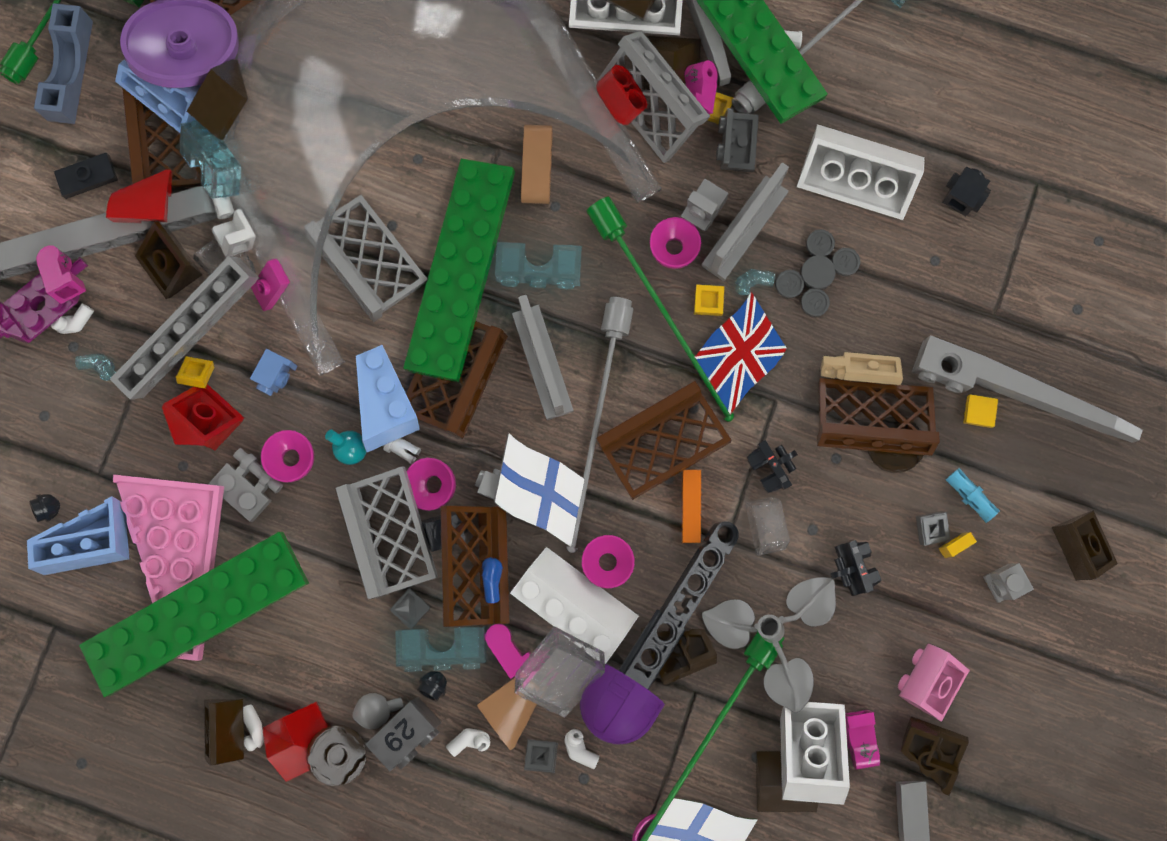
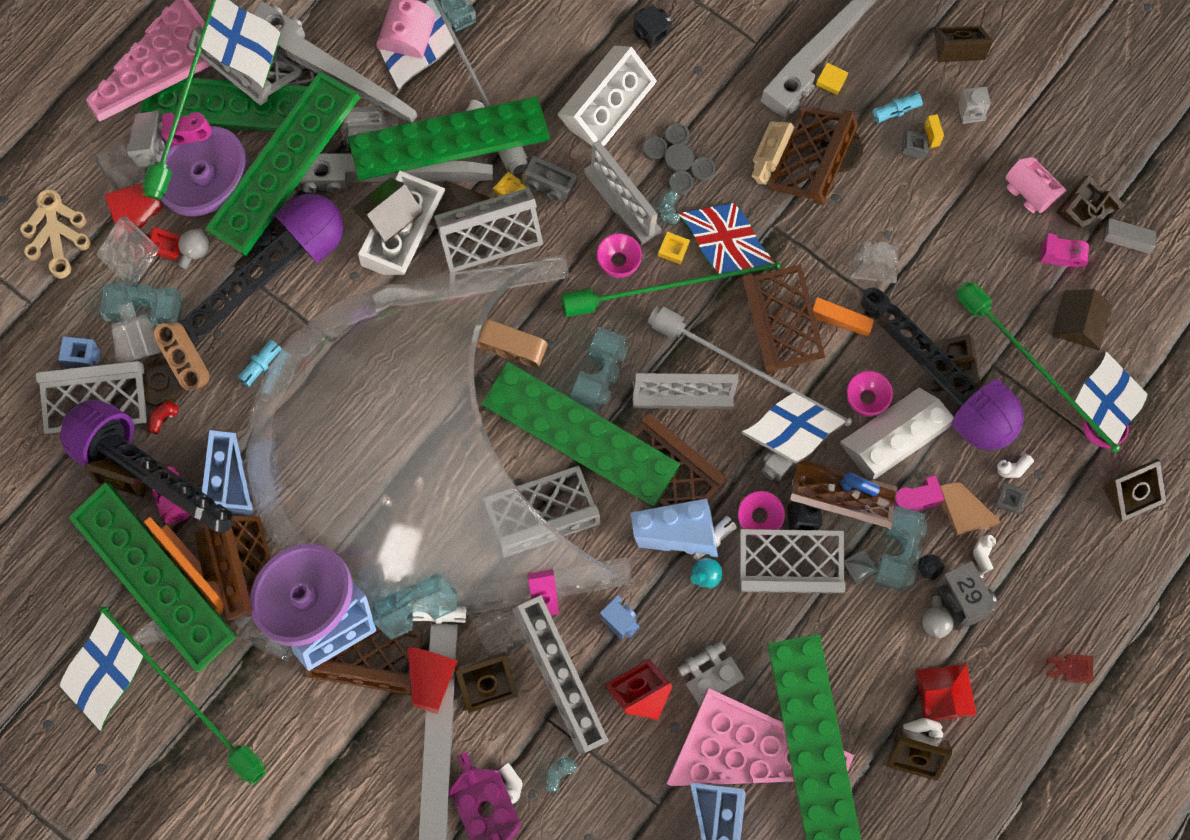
camera: 80 degrees left, 10 degrees down
(57, 274) = (473, 773): dark pink leg -> none
(70, 34) = (266, 719): sand blue arch -> none
(85, 175) = (376, 735): black plate -> none
(195, 372) = (597, 686): yellow tile -> none
(220, 99) = (373, 569): dark brown slope -> none
(235, 235) = (484, 611): white panel -> none
(273, 456) = (702, 613): dark pink piece -> none
(336, 755) = (967, 661): tile -> none
(559, 672) = (952, 453): clear brick -> none
(621, 95) = (479, 252): red beam -> none
(702, 83) = (486, 187): dark pink leg -> none
(704, 205) = (595, 221): light grey brick -> none
(732, 622) = (945, 317): light grey plant -> none
(764, 455) = (827, 240): black hips -> none
(814, 754) = (1067, 284): white brick -> none
(852, 567) = (929, 212): black hips -> none

